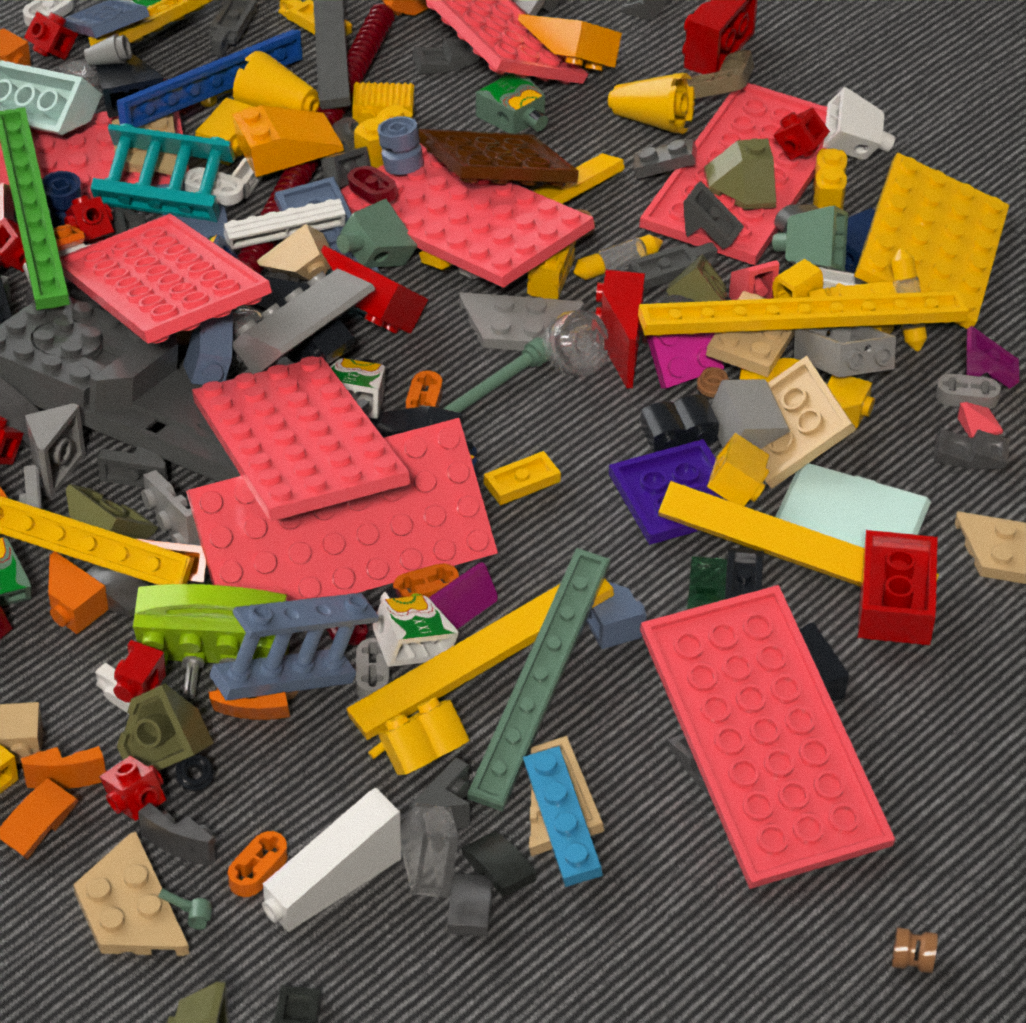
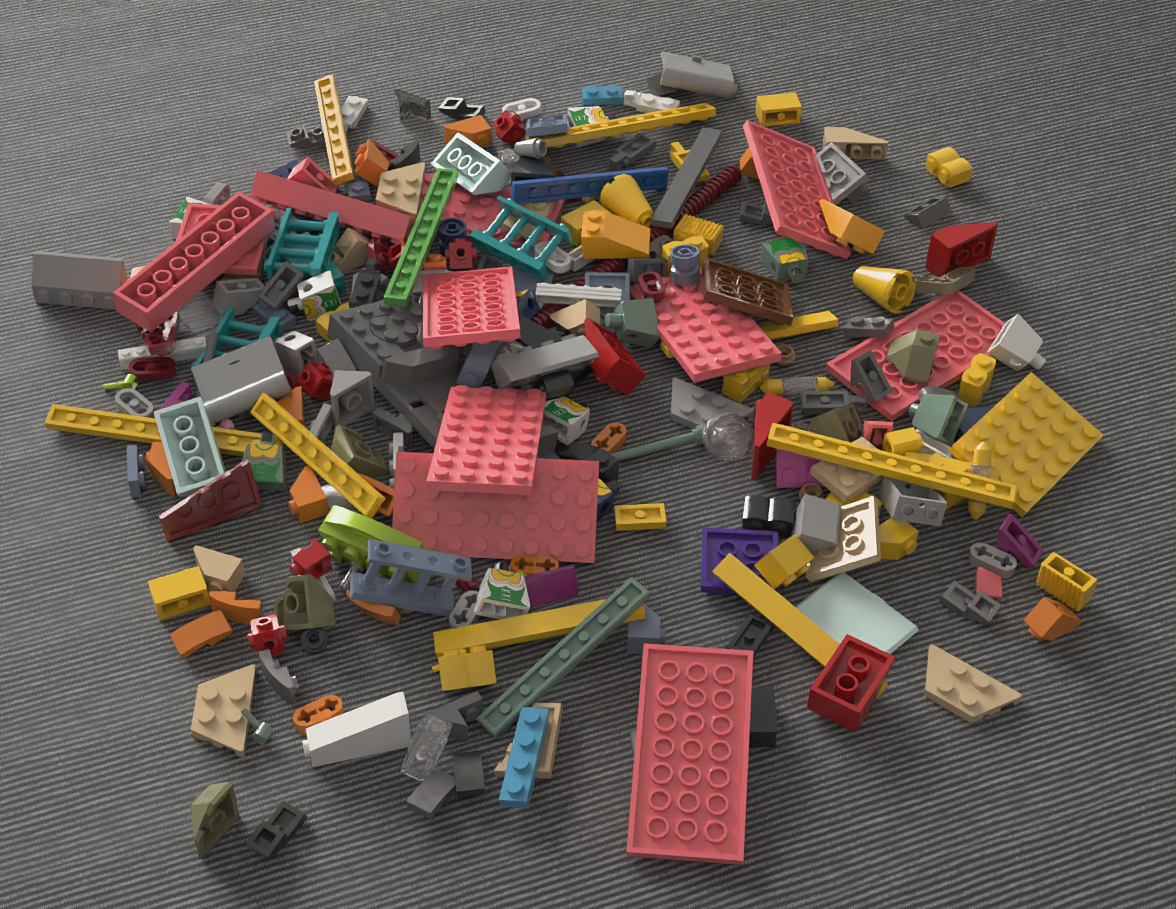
camera: 25 degrees right, 0 degrees up
(706, 581) = (721, 631): clear green slope -> none
(796, 137) = (970, 338): red brick -> none

